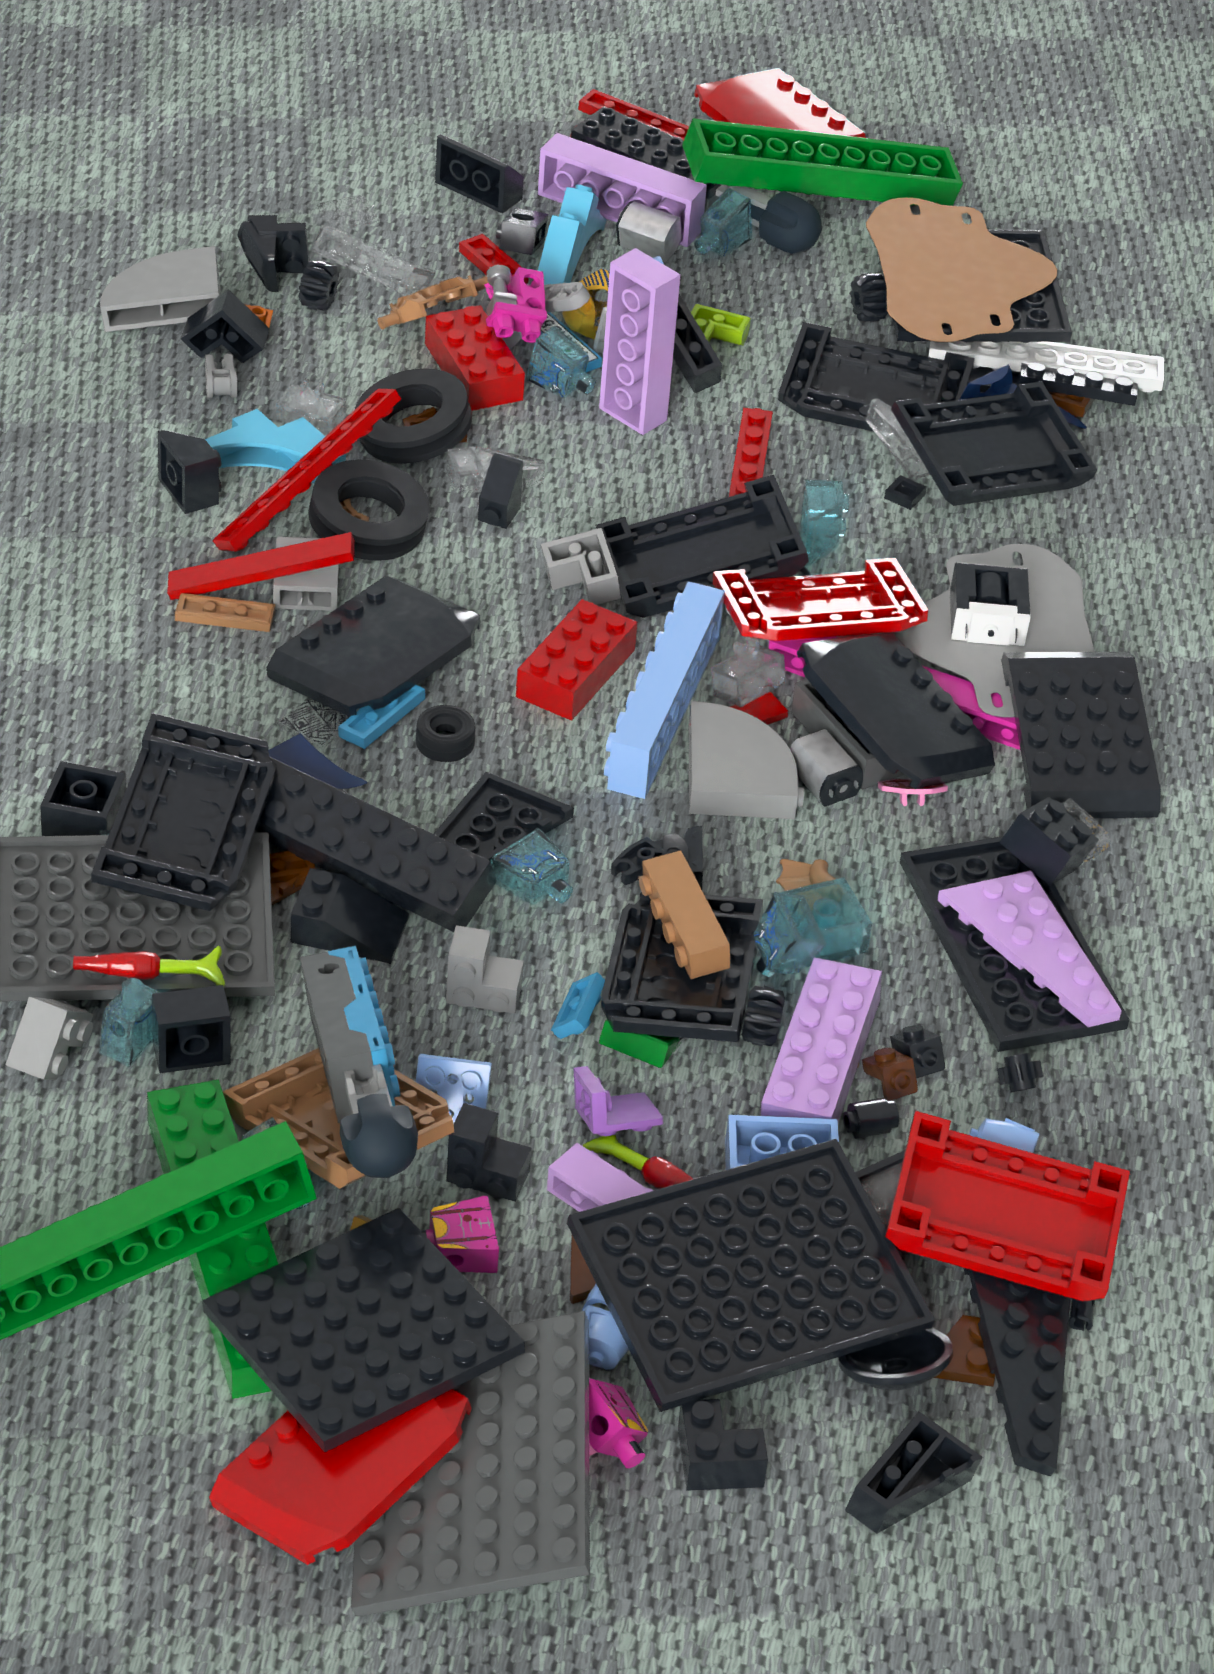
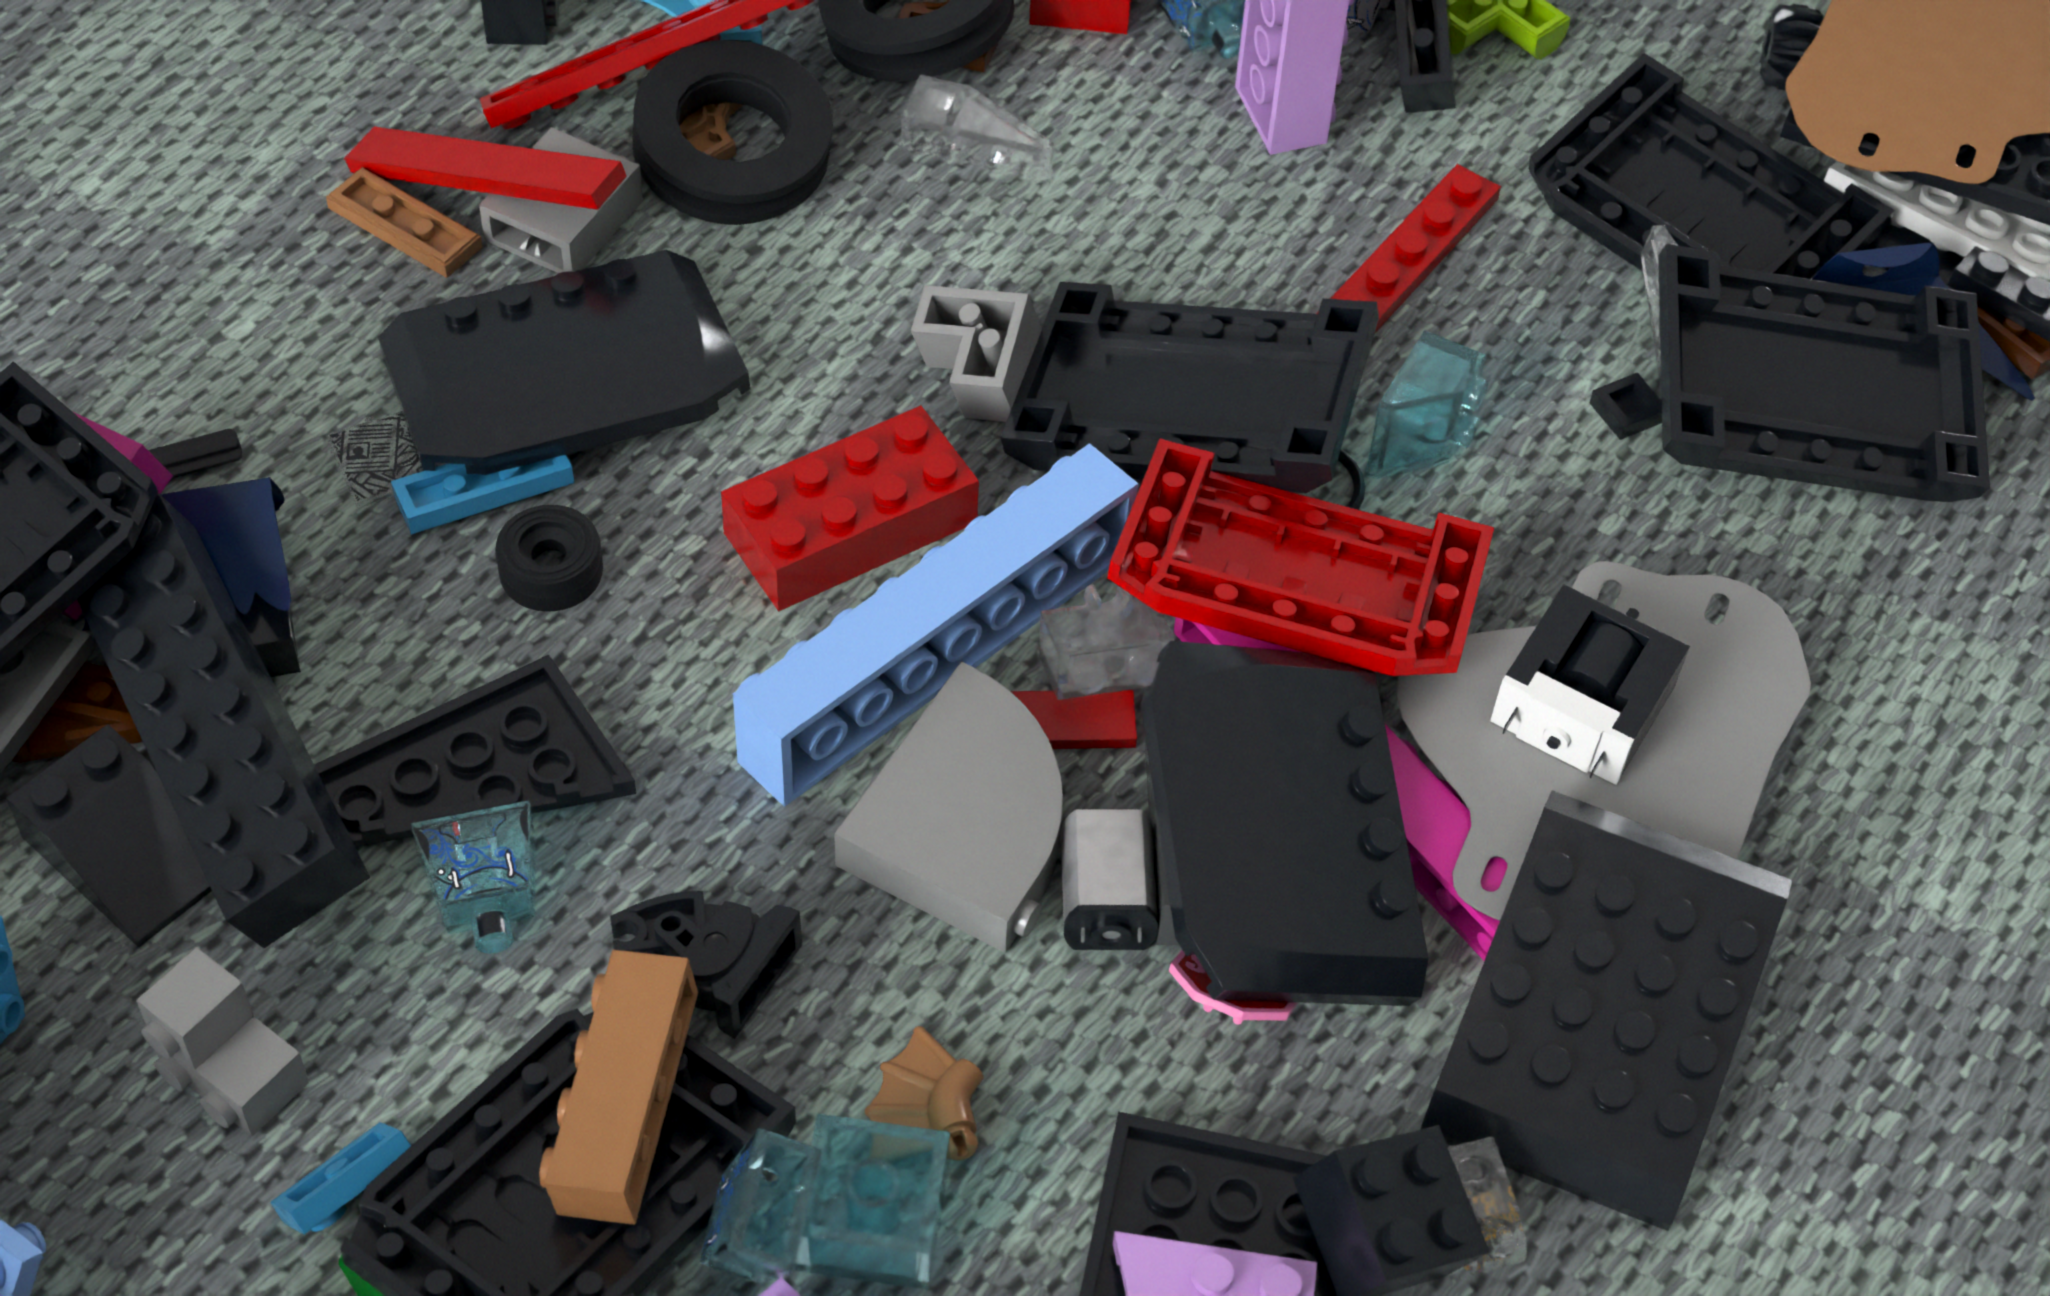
camera: 30 degrees right, 10 degrees up
(501, 491) = (948, 174): black slope -> none

